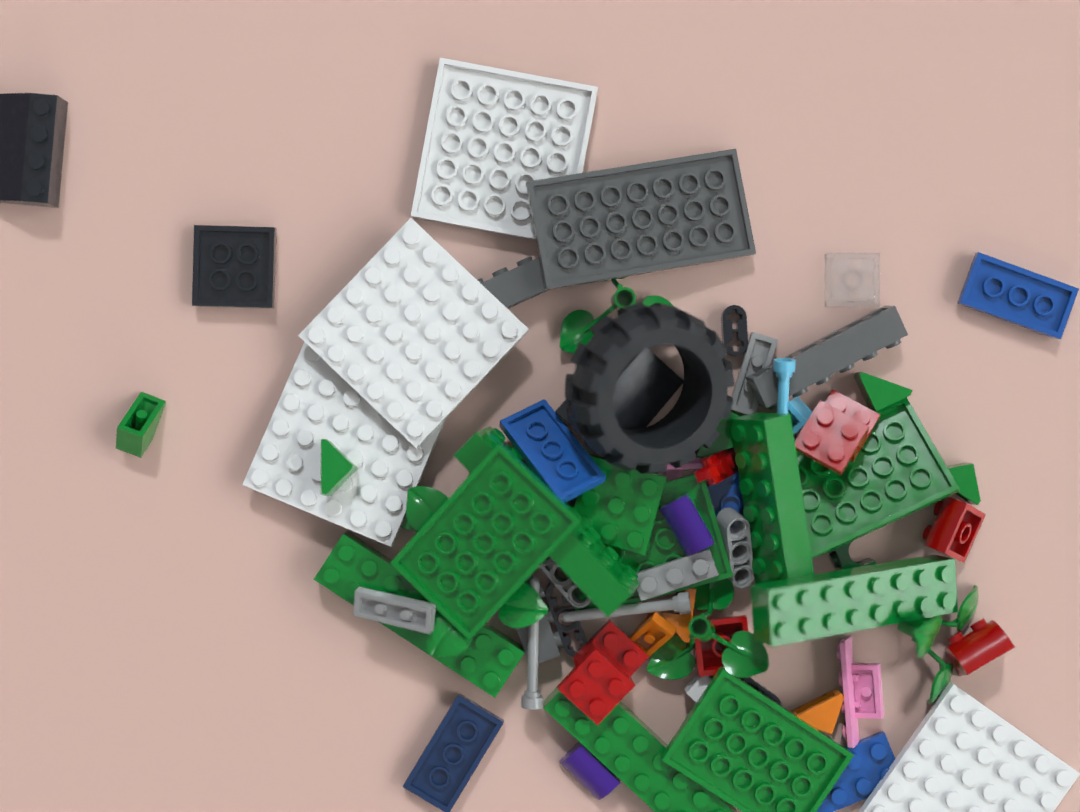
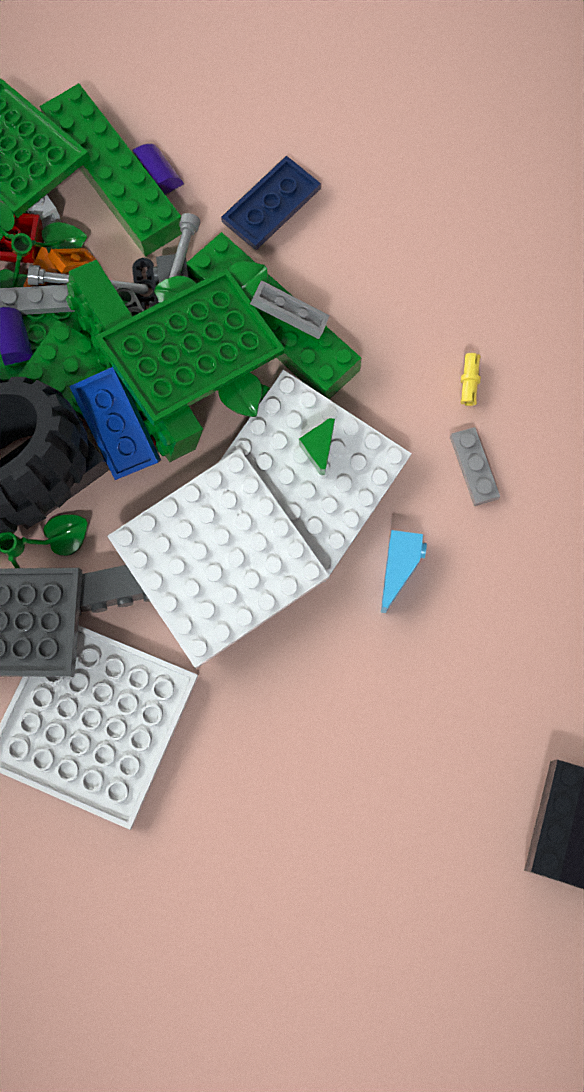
camera: 165 degrees left, 15 degrees down
(139, 424) = (500, 531): green slope -> none
(179, 490) = (474, 466): none -> light grey plate
(198, 585) = (470, 379): none -> light yellow pin
(233, 370) = (402, 560): none -> medium azure slope
(234, 266) = (382, 662): black plate -> none
(603, 672) = (122, 234): red bracket -> none

